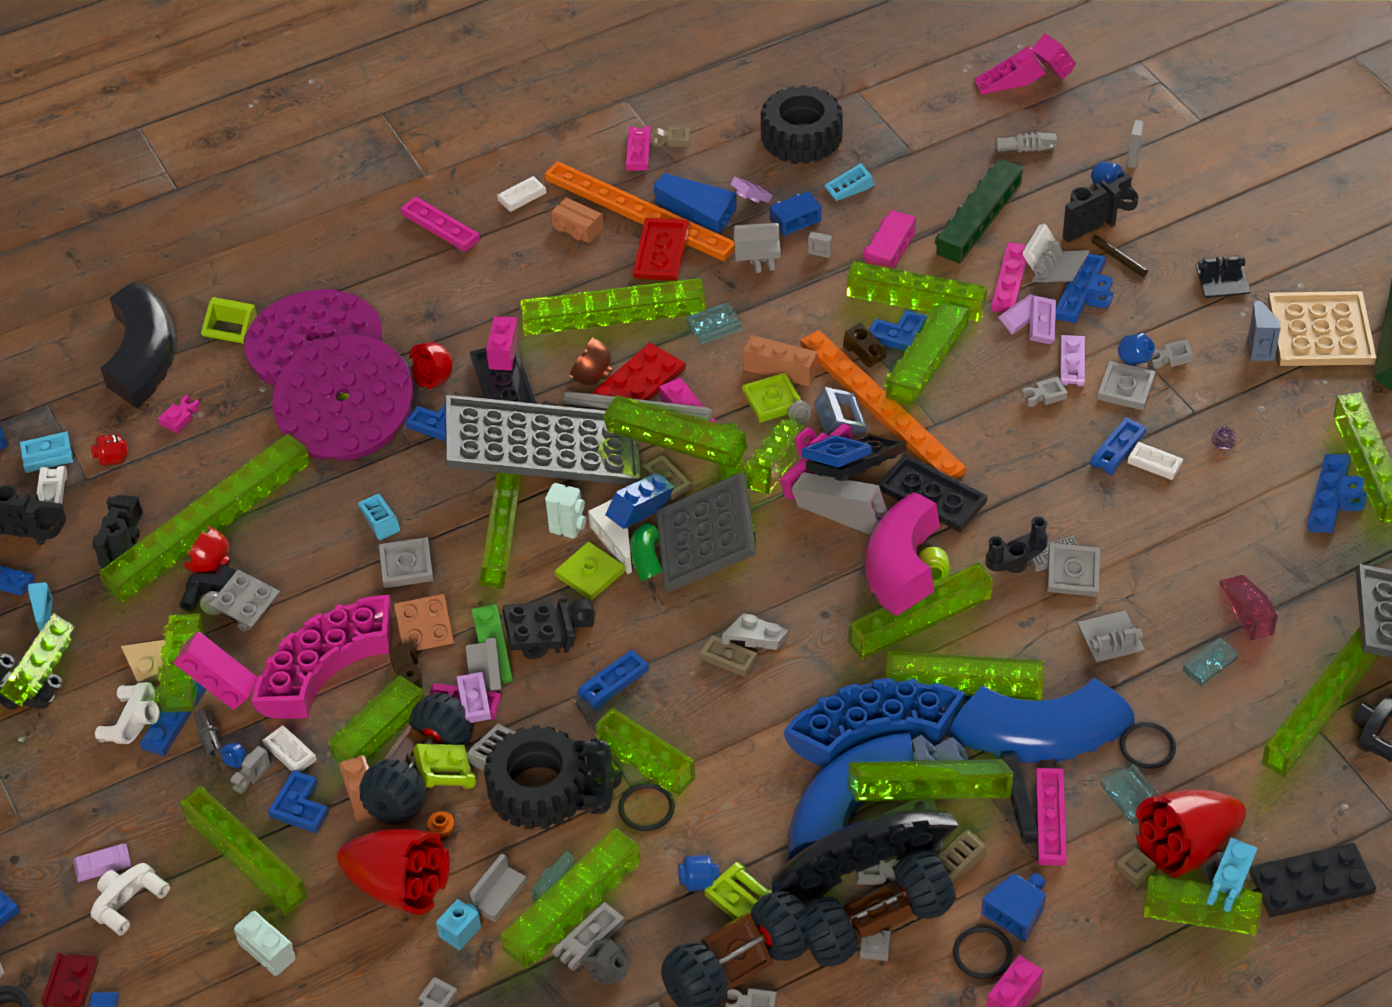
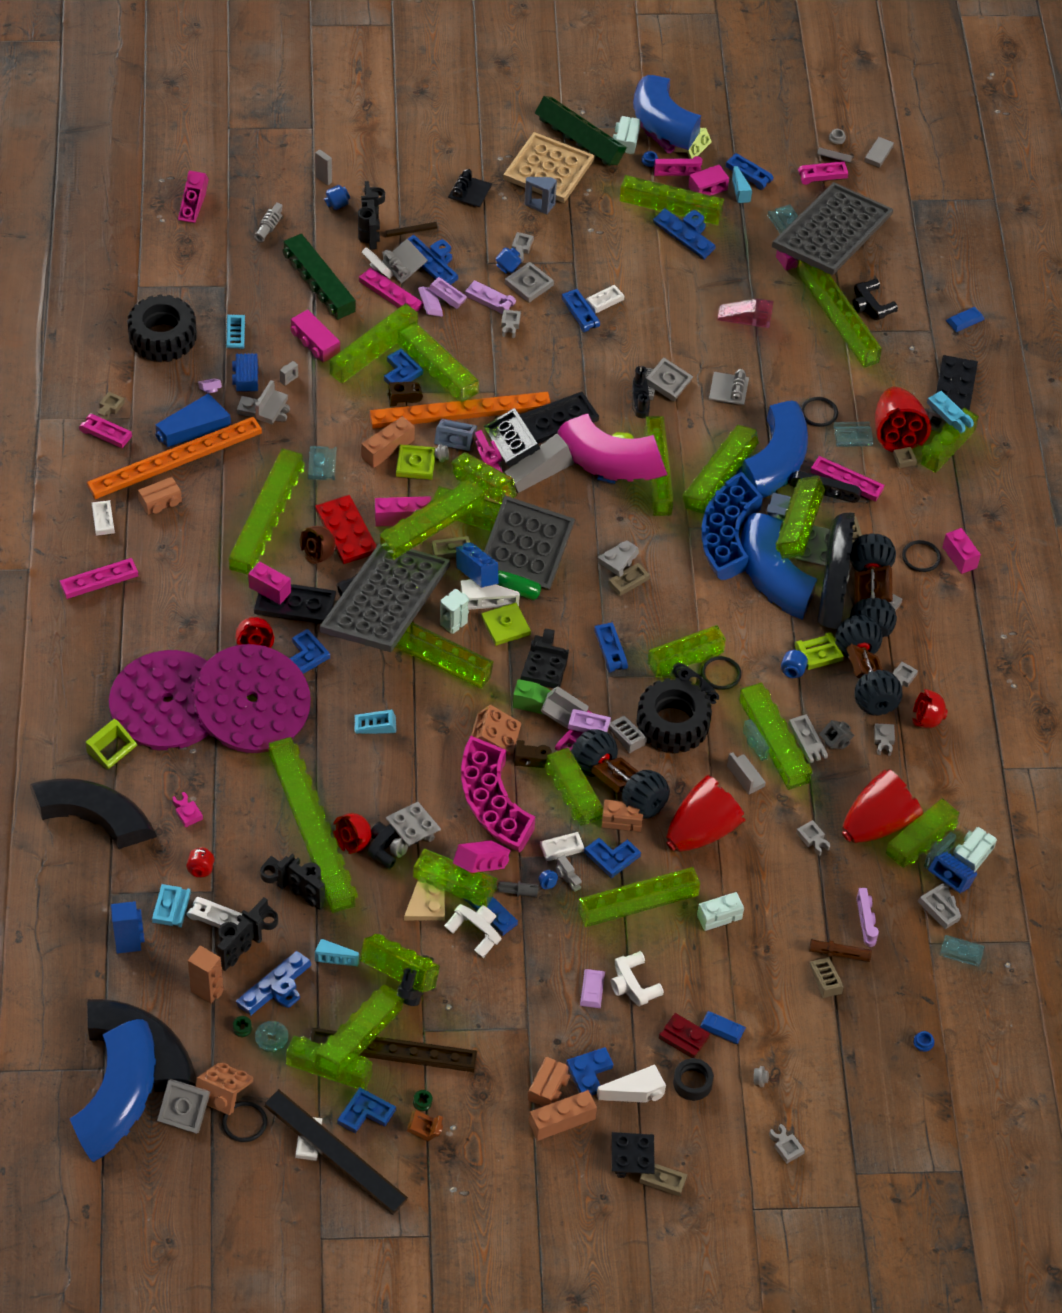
camera: 70 degrees left, 5 degrees up
(406, 562) = (433, 721): light grey plate -> none
(443, 759) = (628, 759): lime plate -> none
(444, 828) = (675, 789): orange plate -> none
(458, 924) = (762, 802): medium azure brick -> none
(603, 402) = (374, 541): light grey axle -> none
(661, 249) = (230, 459): red plate -> none
(836, 451) = (514, 440): blue plate -> none
(1016, 904) = (902, 522): blue torso -> none
(1053, 56) = (205, 163): dark pink brick -> none
(1210, 661) = (778, 352): clear light blue plate -> none
(1224, 438) = (607, 258): clear purple plate -> none

